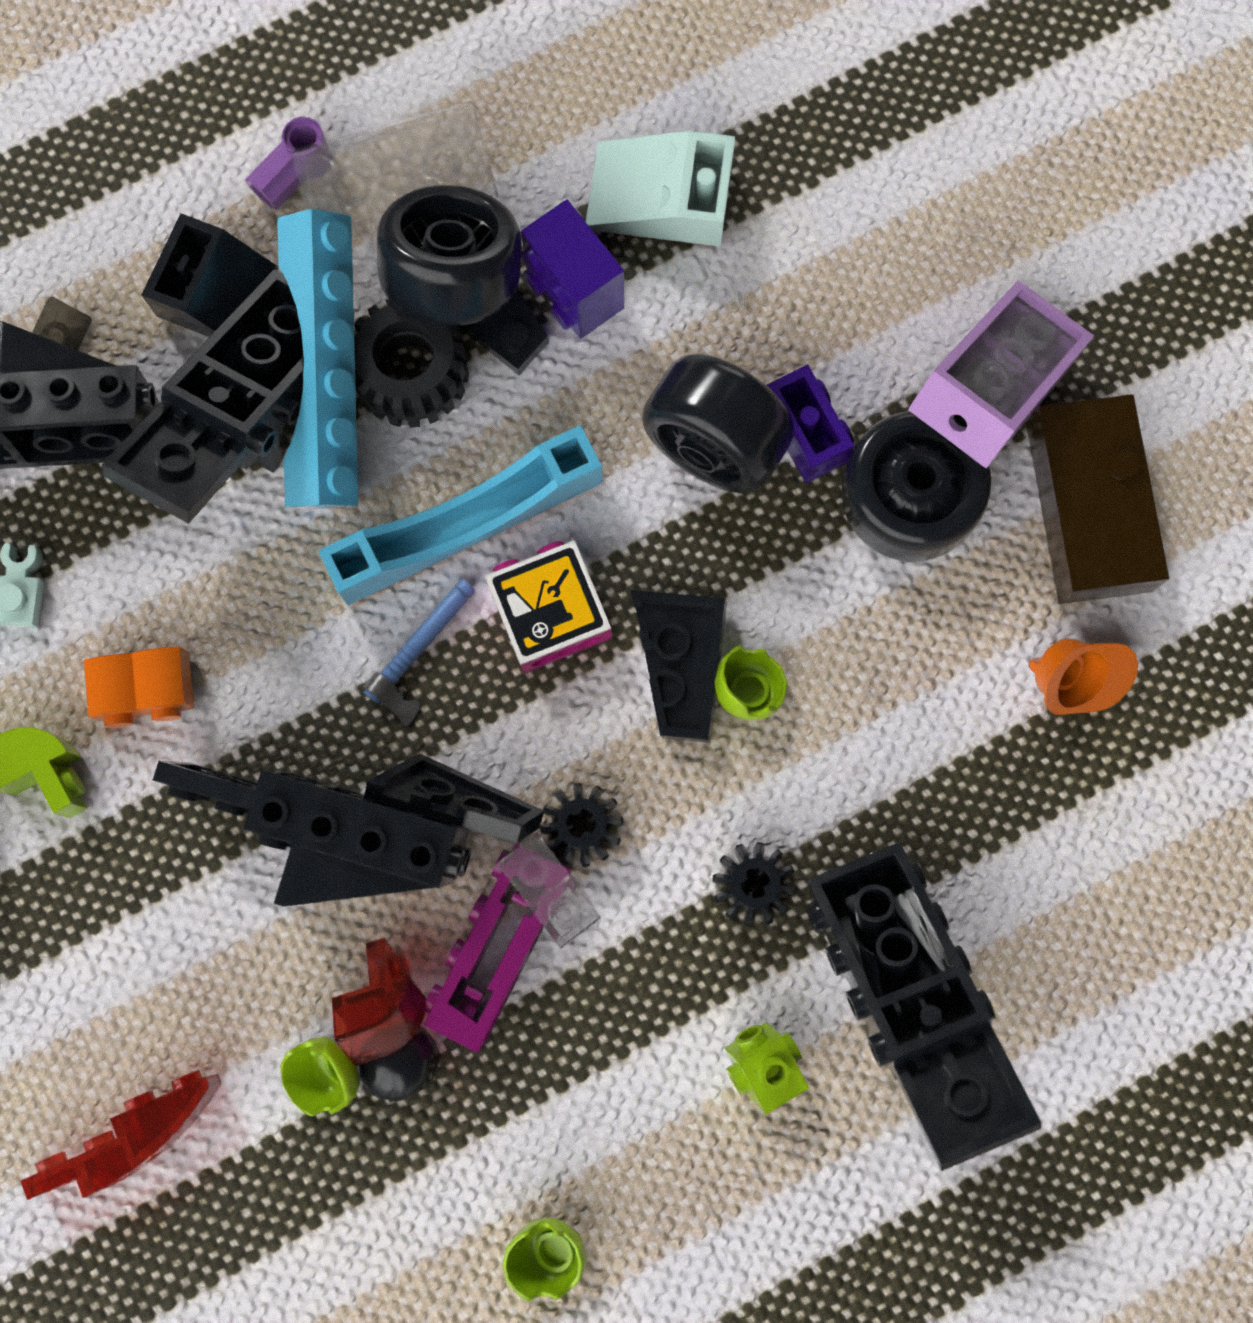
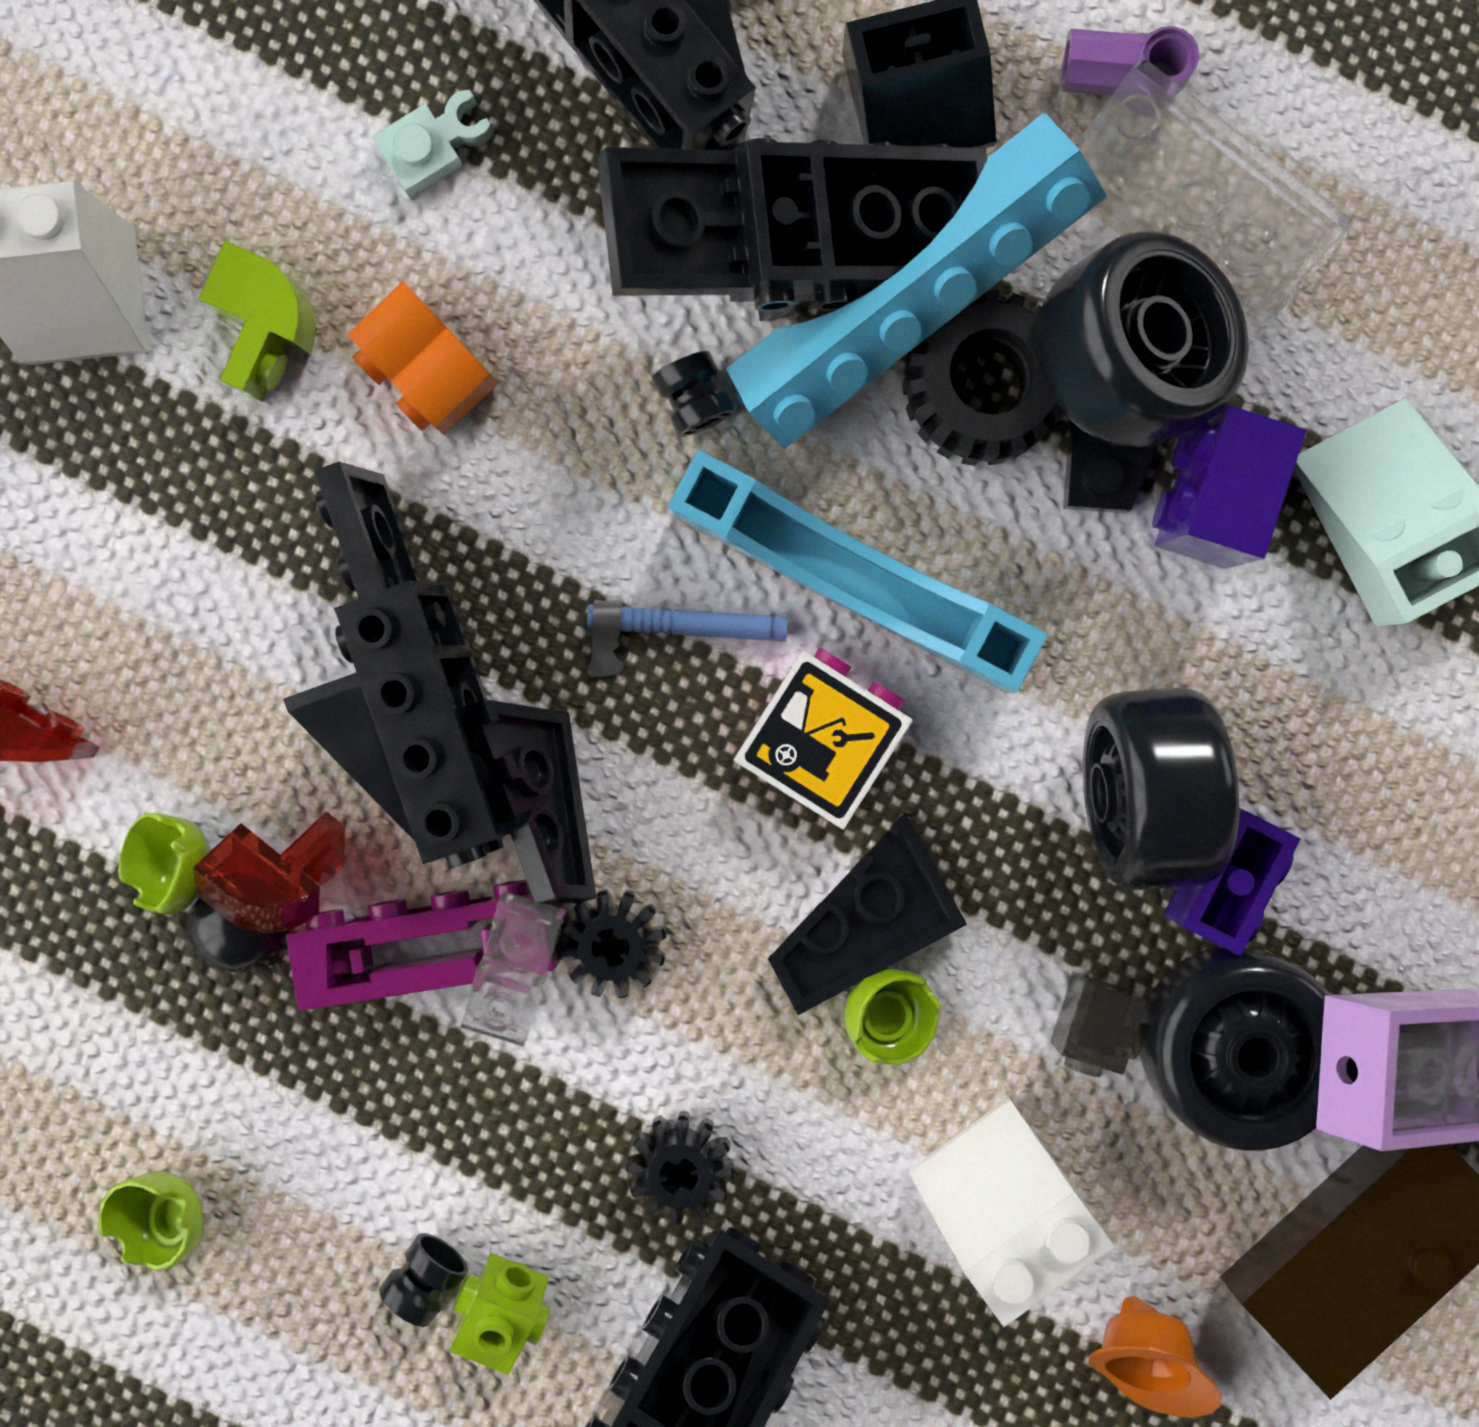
camera: 55 degrees right, 10 degrees up
(285, 537) = (693, 393): none -> black wheel
(716, 1116) = (418, 1286): none -> black wheel
(845, 564) = (1099, 1026): none -> clear smoke brick
(917, 691) = (1008, 1212): none -> white slope

